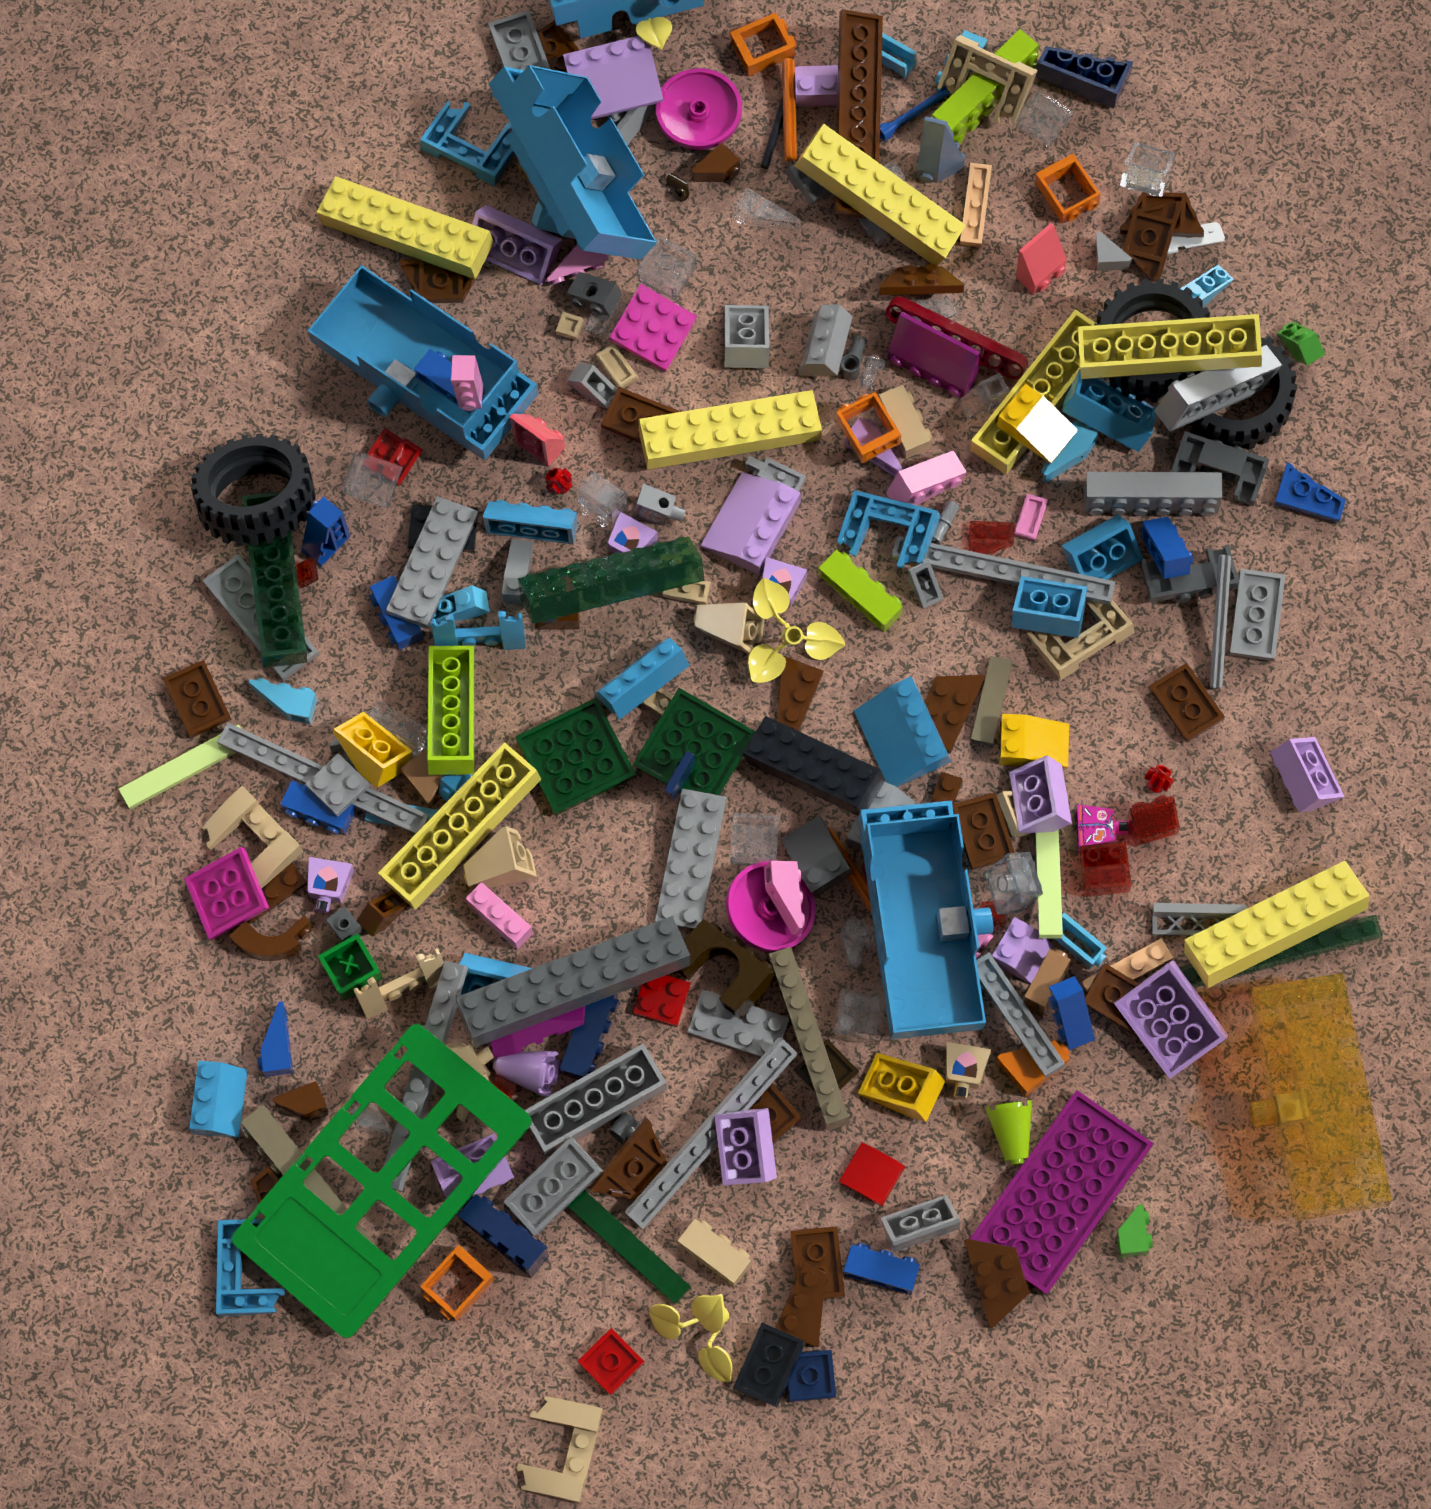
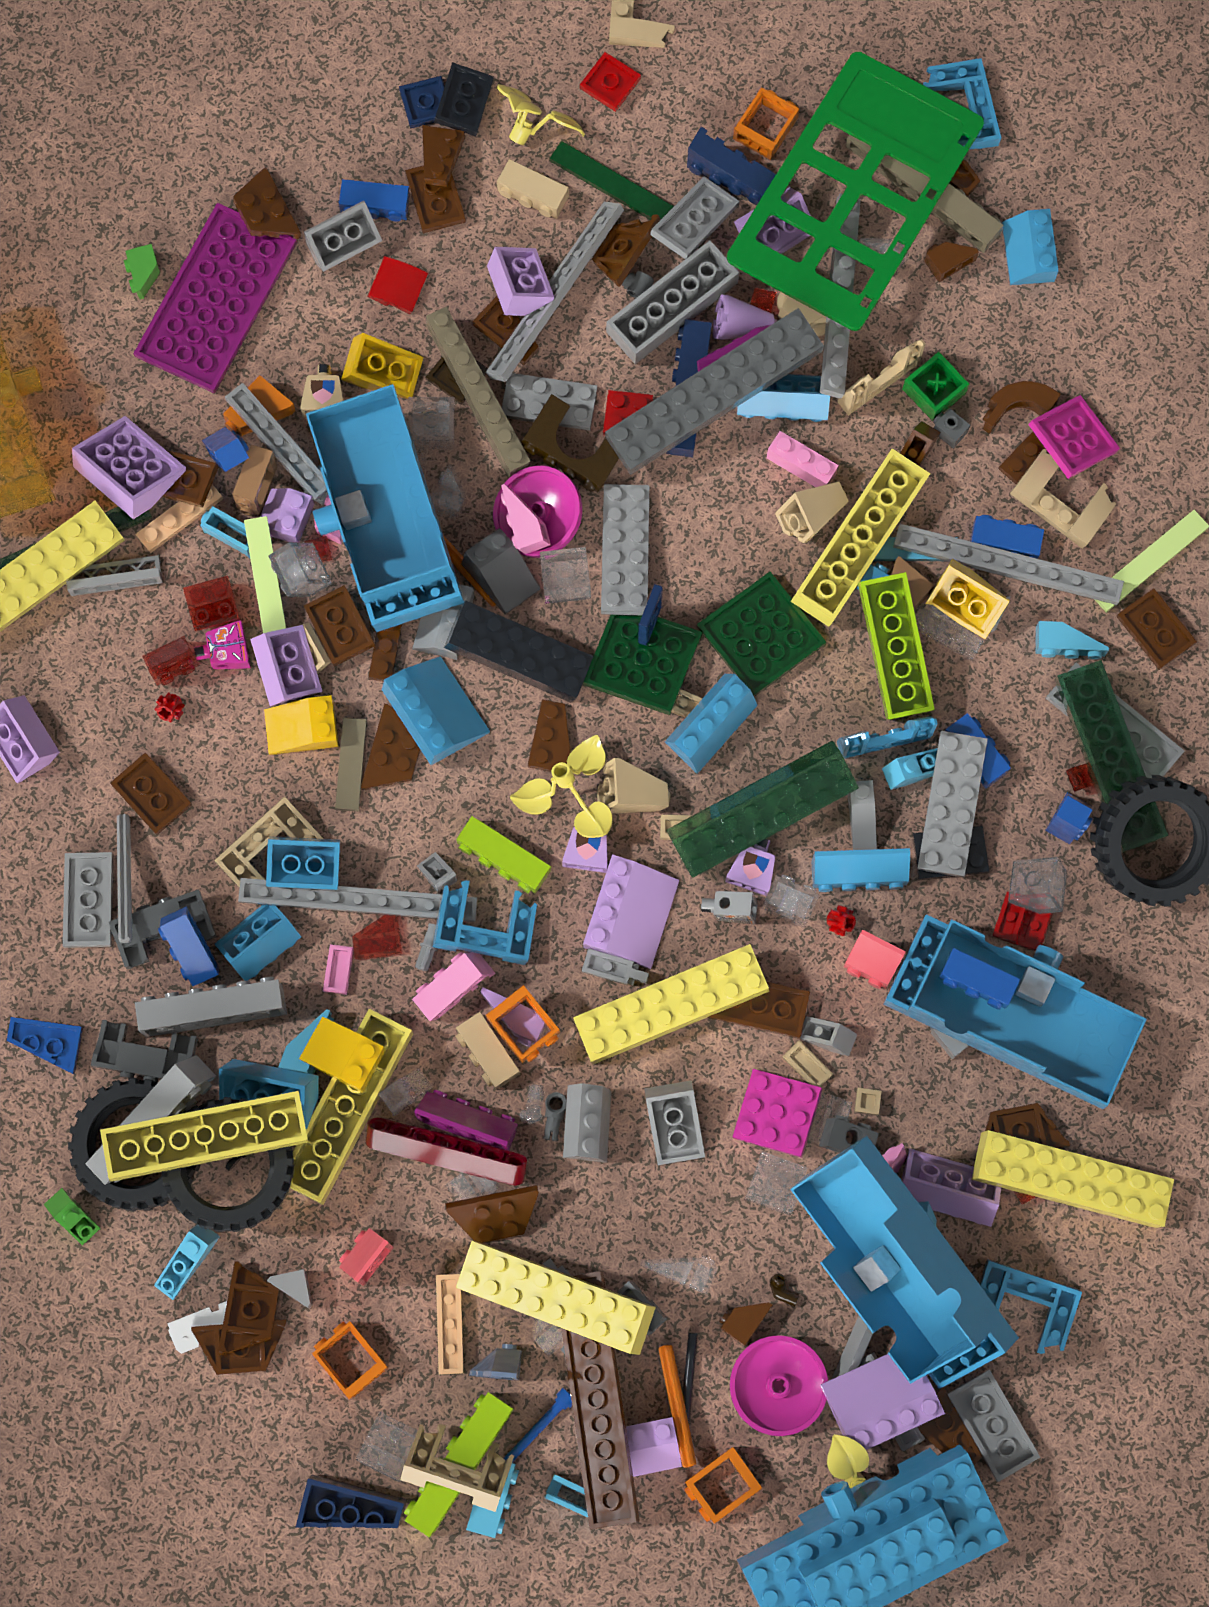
camera: 165 degrees right, 5 degrees up
(276, 1048) = (986, 298): blue slope -> none
(328, 882) = (978, 467): lavender torso -> none
(337, 785) = (991, 555): light grey plate -> none
(467, 382) = (957, 950): bright pink brick -> none
(1012, 1129) = (271, 346): lime cone -> none
(1148, 169) = (261, 1393): clear brick -> none

